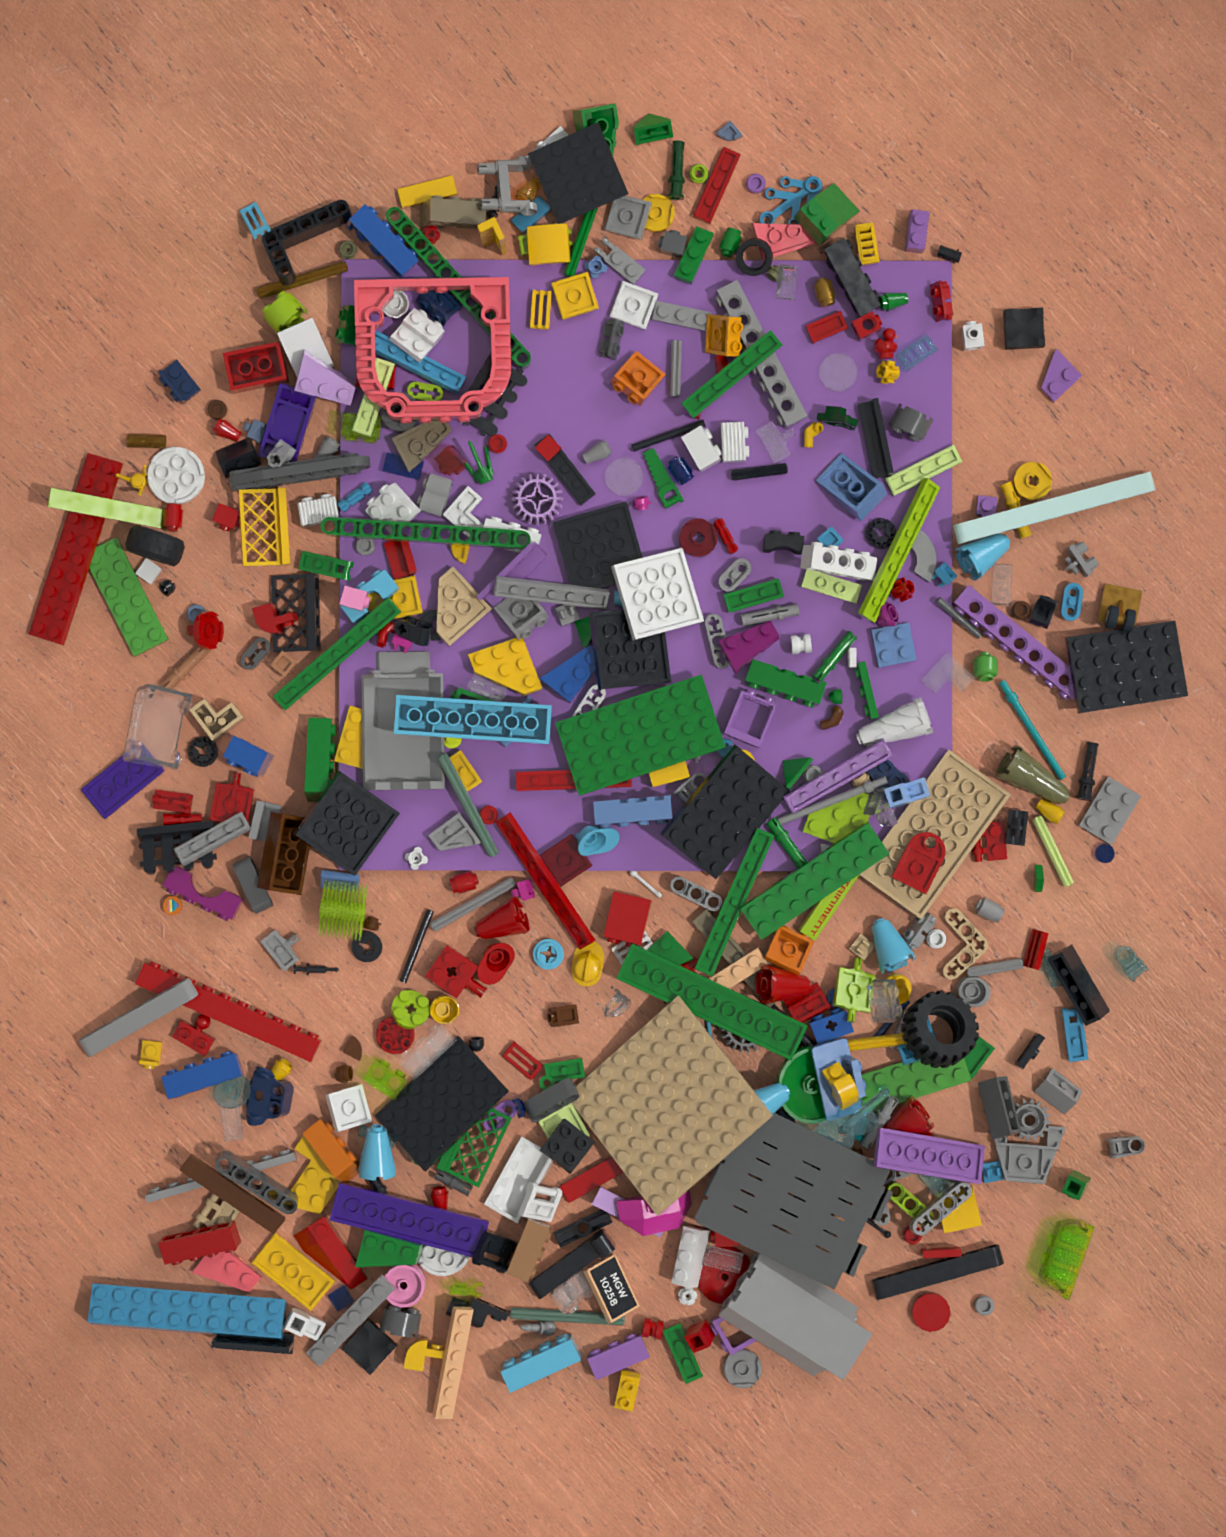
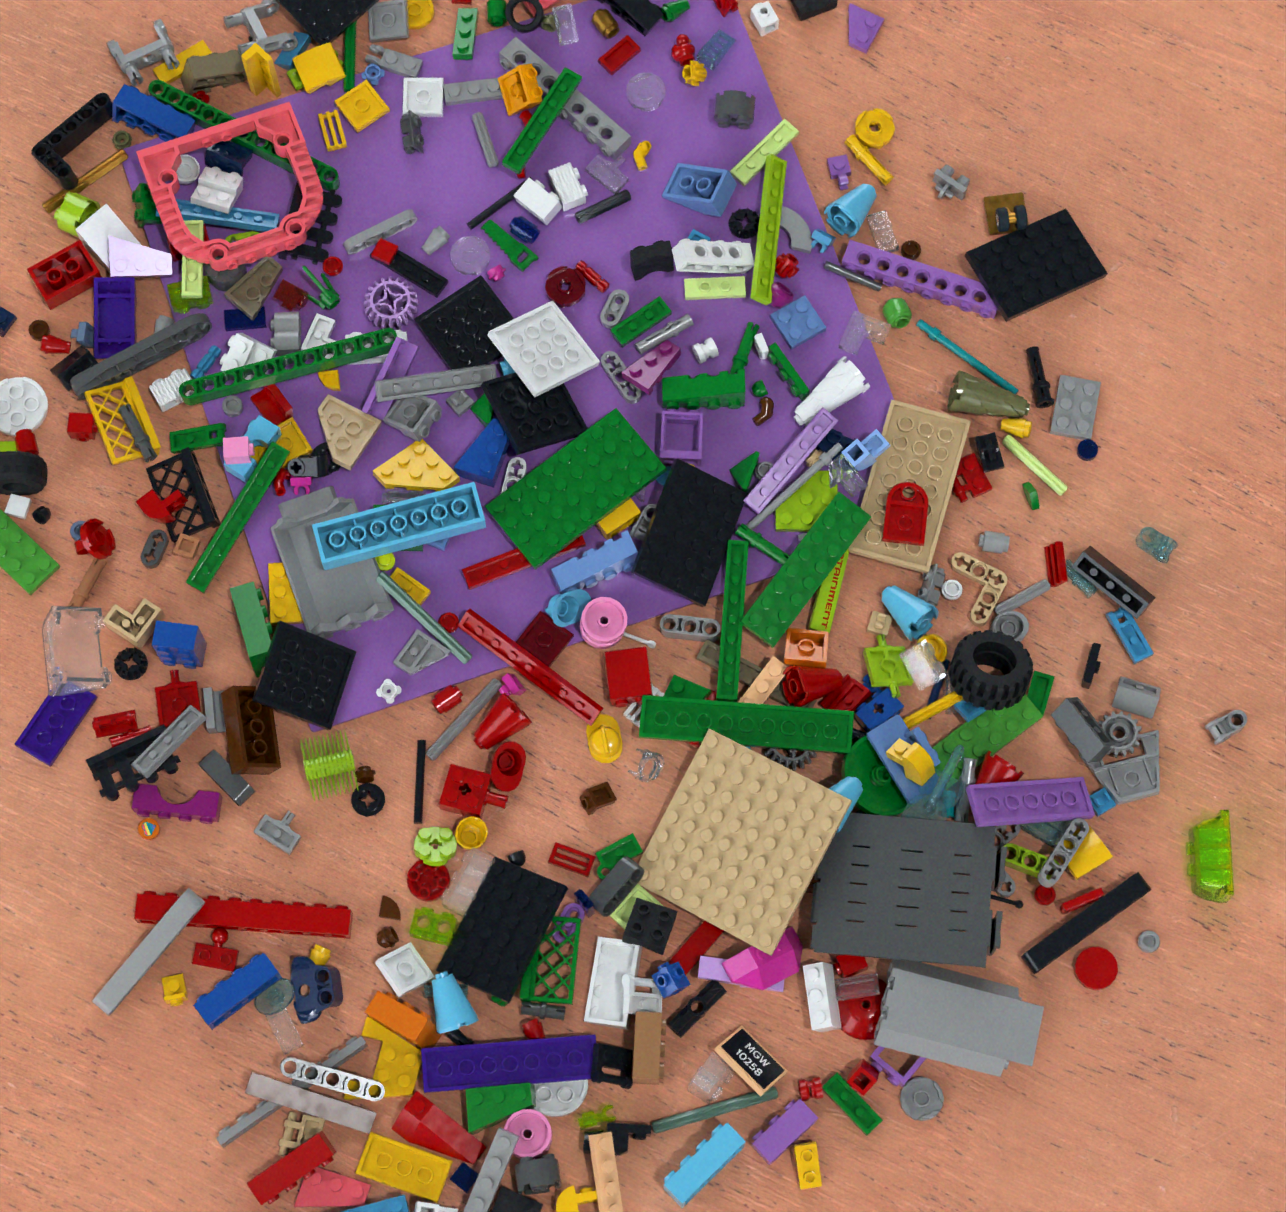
camera: 20 degrees left, 15 degrees down
(260, 230) = (25, 146): medium azure tile -> none
(273, 545) = (142, 440): none -> dark grey pin
(280, 454) = (116, 342): light grey piece -> none
(313, 969) = (319, 842): black piece -> none
(340, 877) = (315, 734): medium blue plate -> none
(392, 175) = (158, 50): none -> light grey connector
(529, 190) = (283, 25): clear yellow cone -> none
(540, 959) = (552, 736): medium azure gear -> none
(546, 1327) = (696, 1130): light grey bar -> none
(550, 426) = (382, 230): none -> light grey beam
(568, 1198) = (670, 979): none -> blue brick
(597, 1245) = (720, 1019): black beam -> none
(610, 865) = (614, 619): none -> bright pink wheel
(637, 378) = (450, 160): orange plate -> none
(672, 243) = (441, 30): dark grey brick -> none
(692, 1296) = (834, 1047): white plate -> none
(837, 416) = (662, 127): dark green plate -> none
(860, 331) = (656, 47): red brick -> none
(875, 439) = (706, 136): black fence -> none
(1043, 611) = (933, 241): black bracket -> none
(1054, 507) = (904, 142): light aqua beam -> none
(1071, 602) = (957, 226): dark azure plate -> none
(1076, 1185) = (1193, 782): green brick -> none

